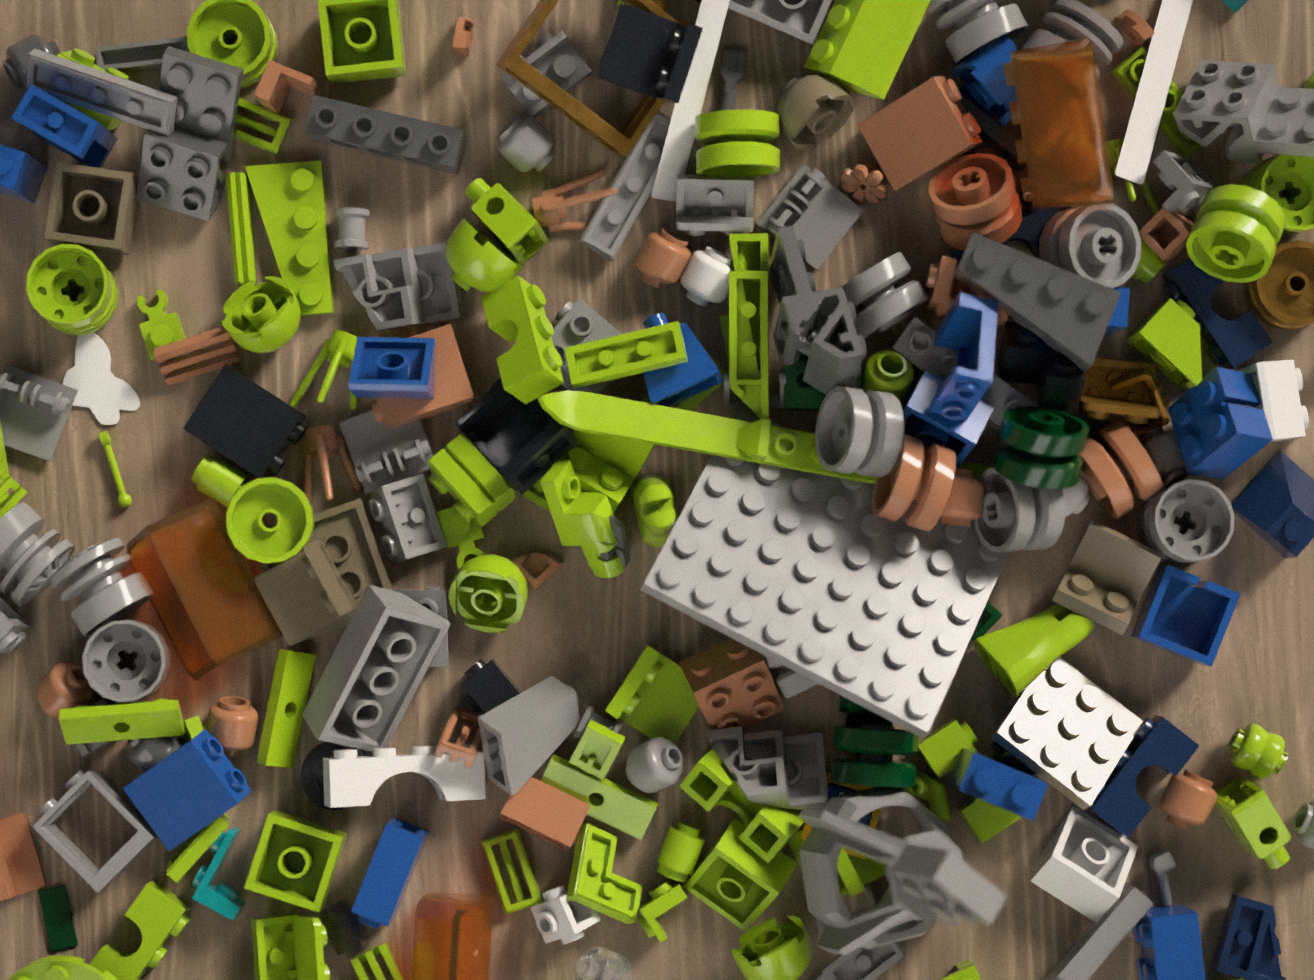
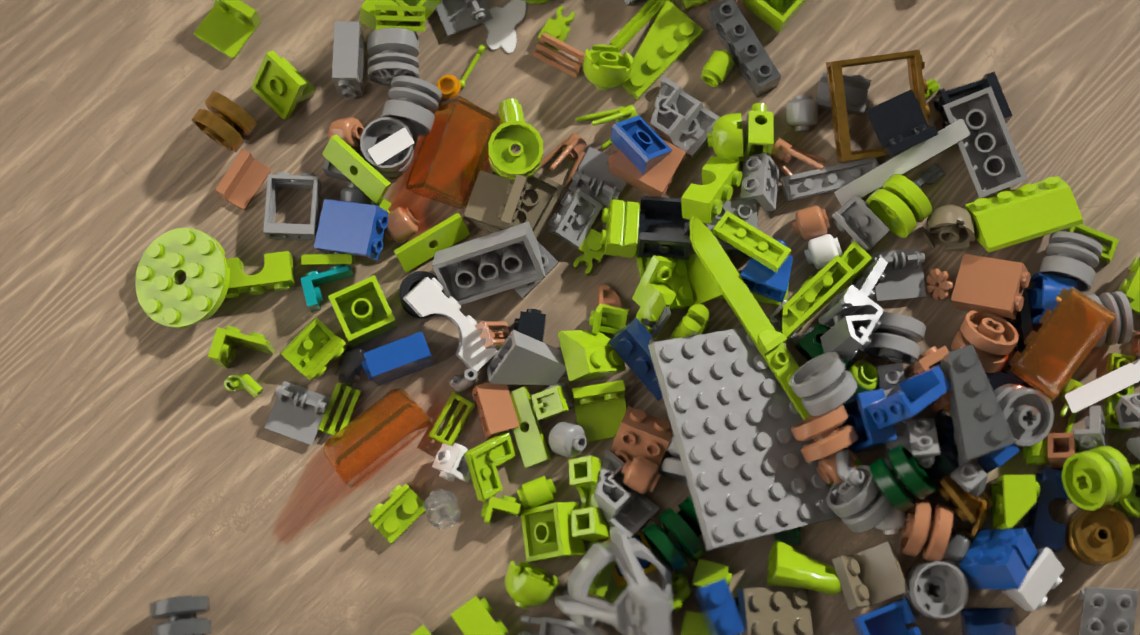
camera: 45 degrees right, 10 degrees down
(58, 917) = (234, 229): dark green window -> none
(115, 518) = (449, 86): none -> light orange plate
(133, 660) = (391, 146): none -> white sticker
(246, 423) = (550, 103): black panel -> none
(351, 228) = (685, 71): light grey bush -> none
(382, 188) = (717, 68): none -> lime brick
(463, 36) = (822, 41): nougat tile -> none
(482, 823) = (462, 384): none -> light grey arm
(489, 593) = (576, 284): lime cylinder -> none
(561, 591) = (608, 319): none -> lime bracket
(562, 270) = (760, 180): none -> light grey bracket
(582, 652) = (589, 355): none -> lime slope
(618, 599) = (632, 346): none -> dark blue arch
(770, 723) = (641, 474): none -> nougat head
(978, 500) = (846, 471): none -> light grey arm
(1024, 383) = (924, 441): none -> light grey hinge
(1109, 371) = (970, 478): none -> light grey bracket

